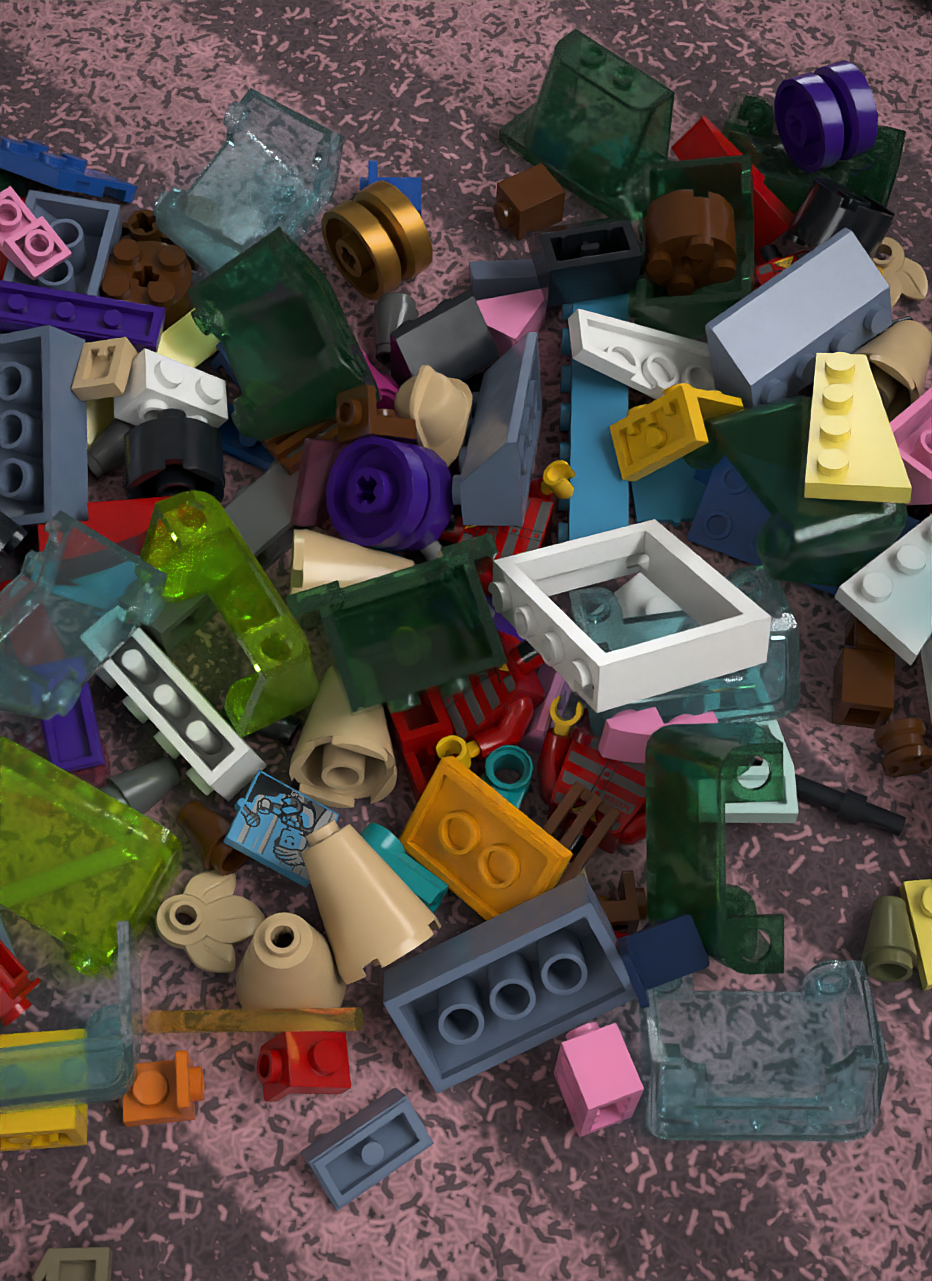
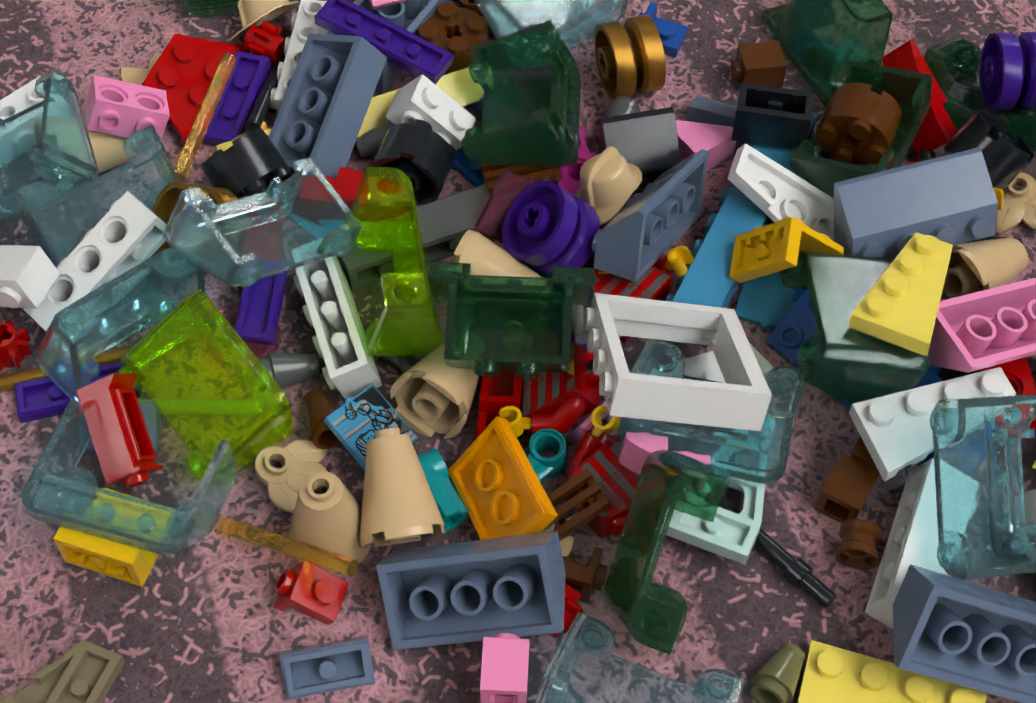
camera: 25 degrees right, 5 degrees down
(103, 369) = (390, 80): tan bracket -> none
(164, 1092) = (207, 571): orange bracket -> none
(360, 418) = (546, 167): reddish brown bracket -> none
(662, 954) = (585, 608): dark blue bracket -> none

